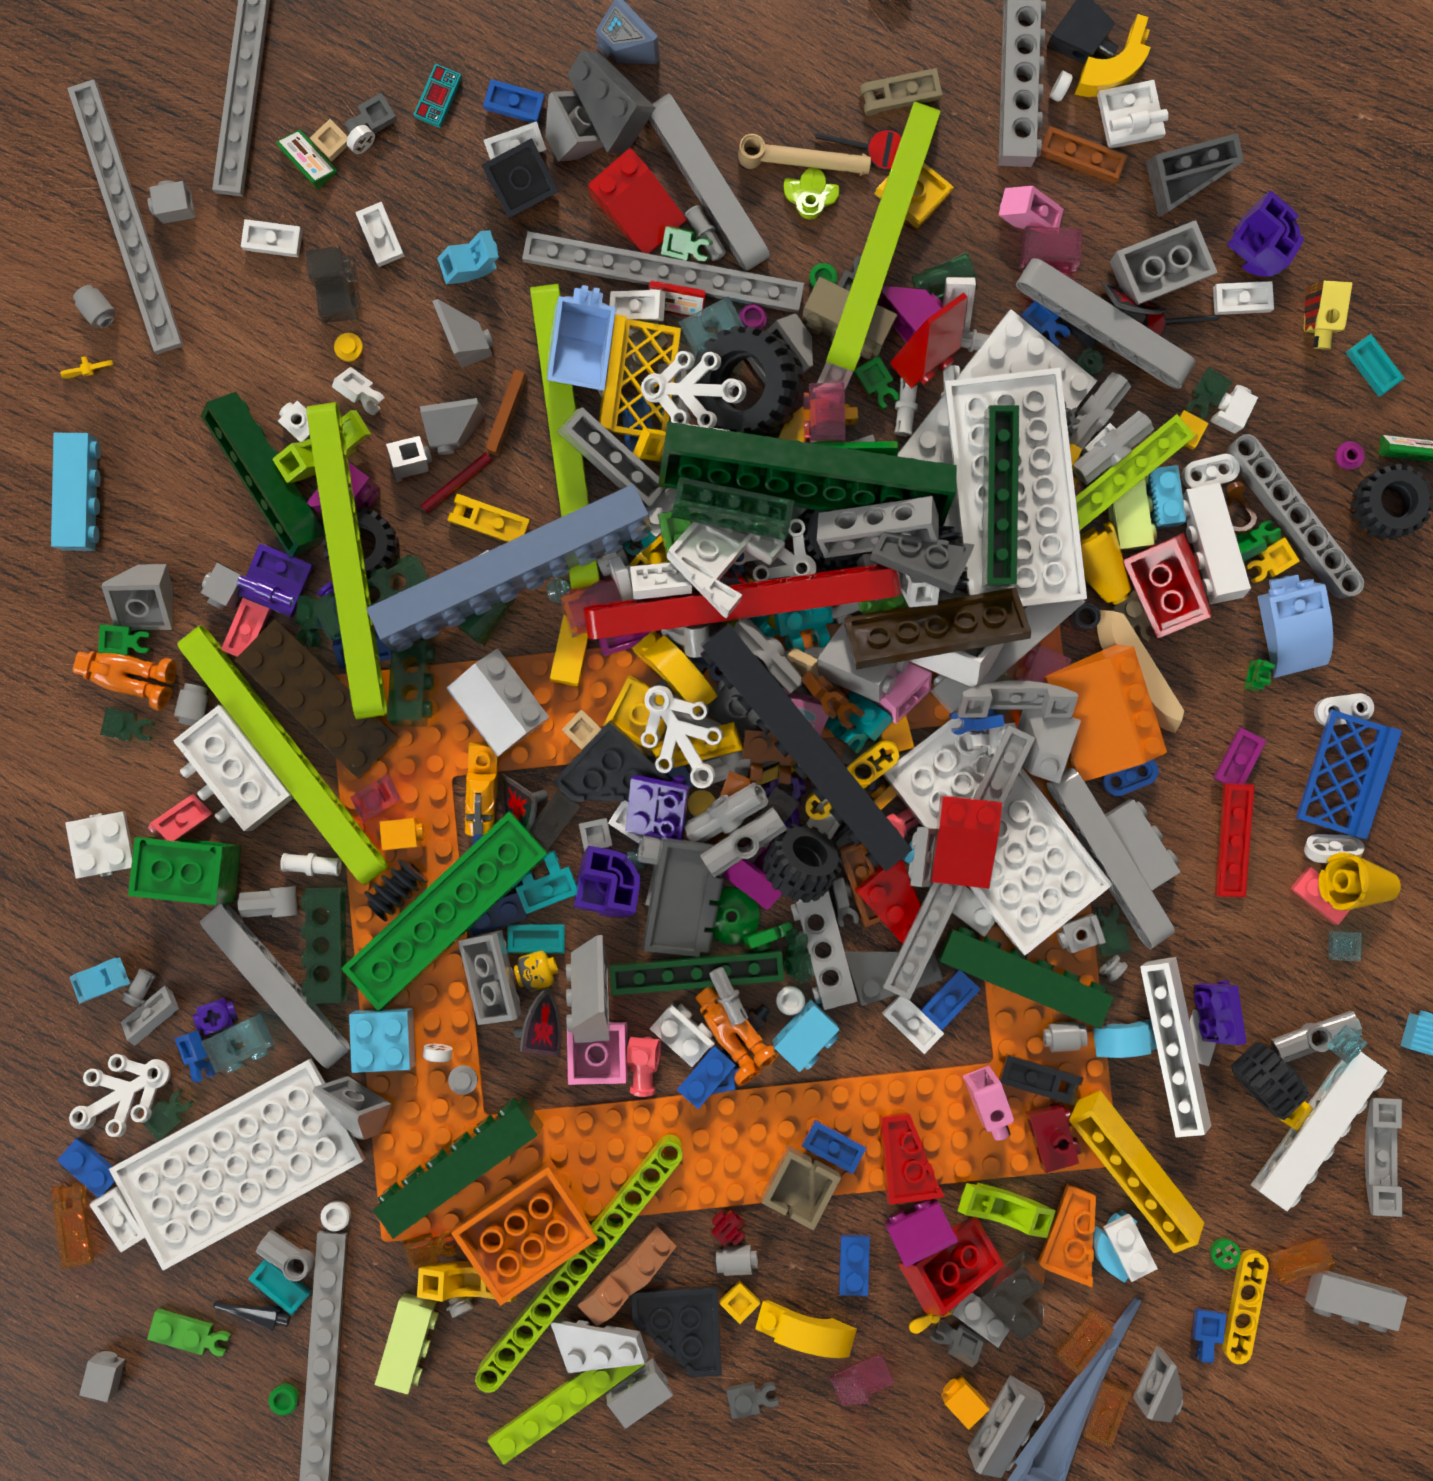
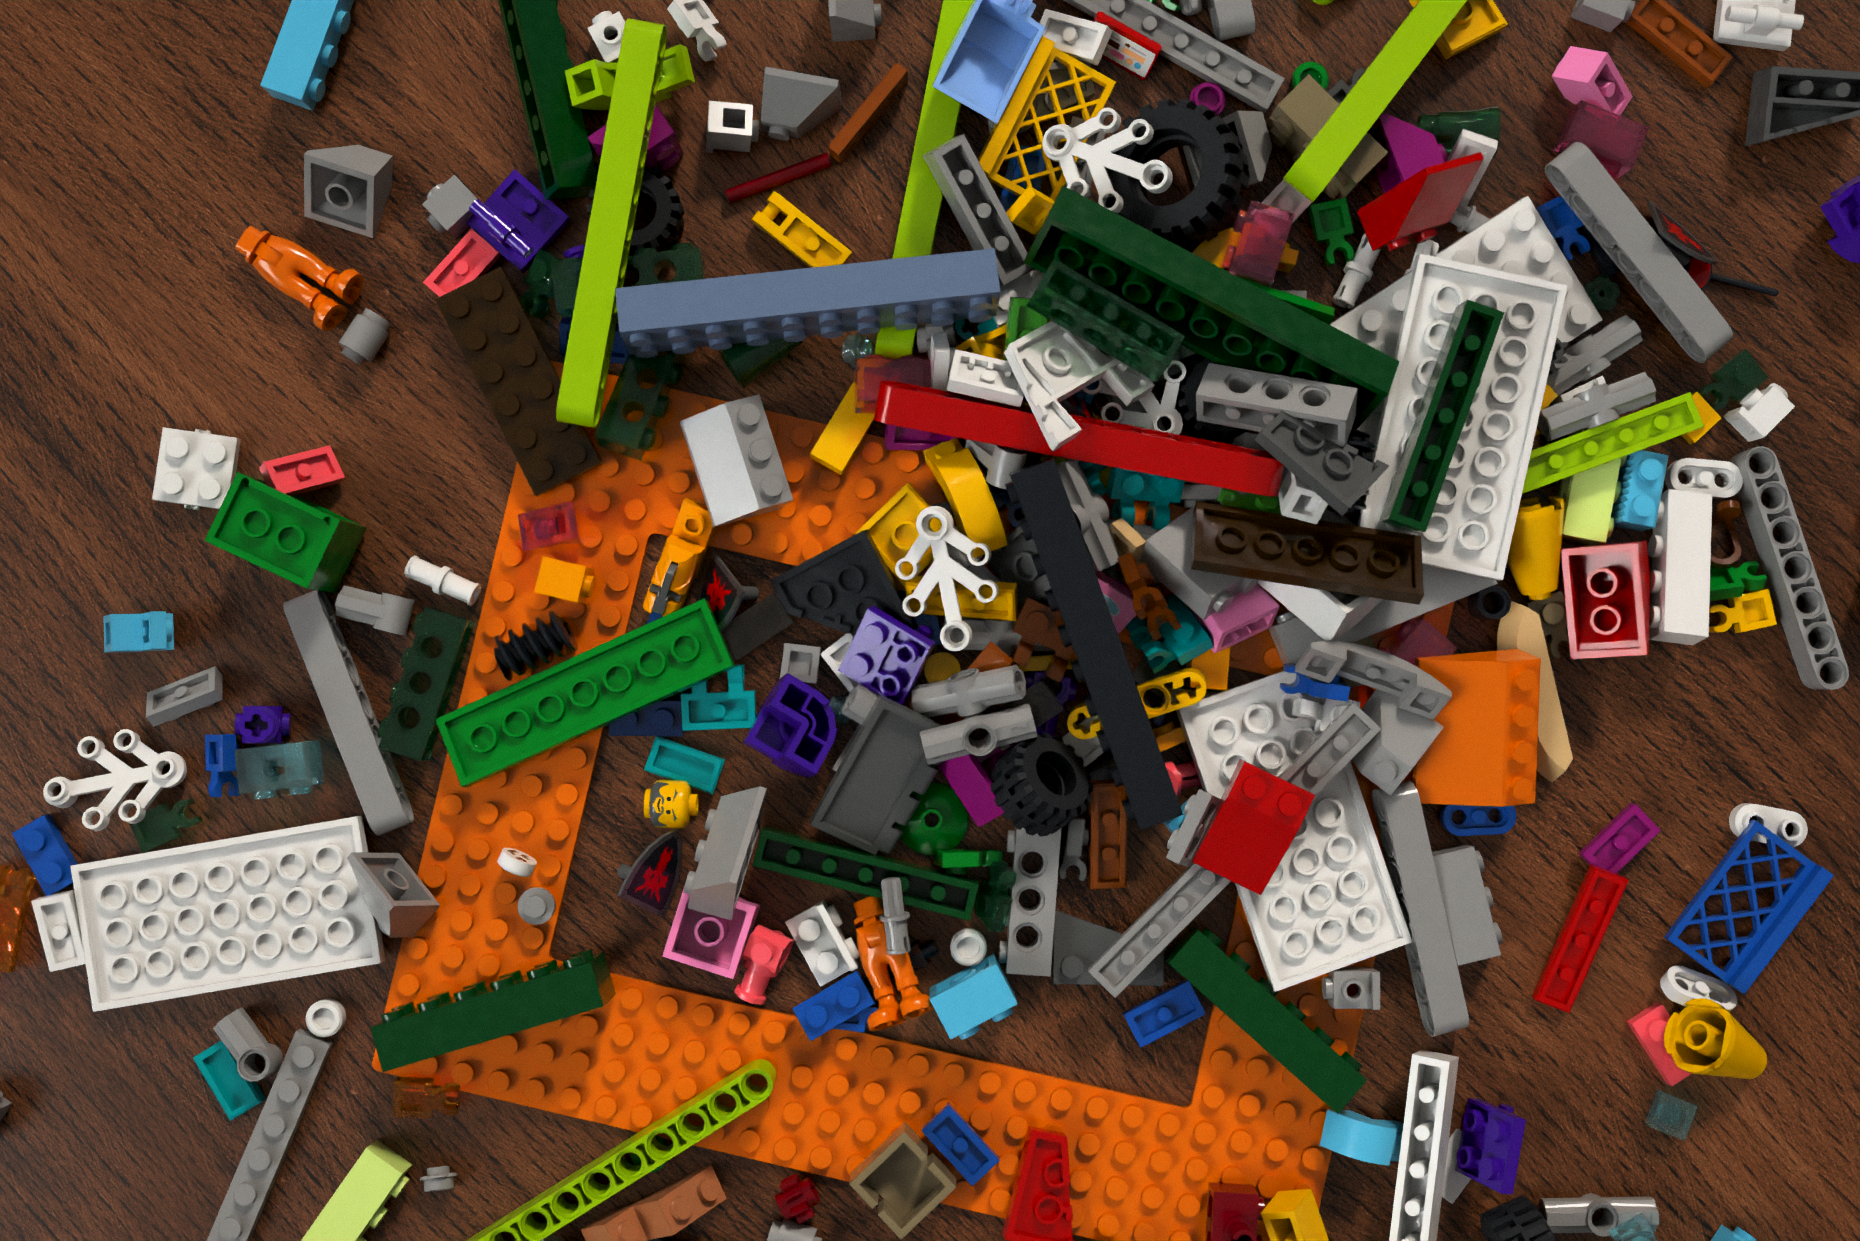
camera: 20 degrees right, 0 degrees up
(119, 640) = (305, 229): green plate -> none
(123, 725) = (274, 334): clear green plate -> none
(138, 988) = (182, 659): light grey pin -> none
(186, 1333) = (95, 1097): bright green plate -> none
(231, 770) = (388, 432): white piece -> none
(262, 1315) = (196, 1109): black piece -> none
(282, 755) = (454, 436): lime beam -> none
(283, 1399) = (186, 1219): green tile -> none
(382, 1040) = (454, 823): medium azure brick -> none
(450, 1281) = (457, 1150): yellow arch -> none
(490, 978) = (612, 793): light grey slope -> none
(524, 1232) = (546, 1119): orange slope -> none
(581, 729) = (827, 528): tan plate -> none
(719, 316) = (1164, 82): clear light blue brick -> none
(891, 898) = (1135, 865): red wing -> none
(913, 1023) = (1108, 1027): white plate -> none
(972, 912) = (1229, 917): white plate -> none
(989, 1101) = (1170, 1155): bright pink torso -> none
(1039, 1079) = (1240, 1149): black plate -> none
(1065, 1036) = (1290, 1107): light grey brick -> none
(1113, 932) = (1393, 1002): clear green plate -> none
(1113, 968) = (1376, 1044): light grey bush -> none
(1163, 263) = (1734, 202): light grey slope -> none
(1243, 298) = (1816, 279): white plate -> none
(1258, 675) = (1678, 746): green plate -> none
(1296, 624) = (1747, 701): light blue piece -> none

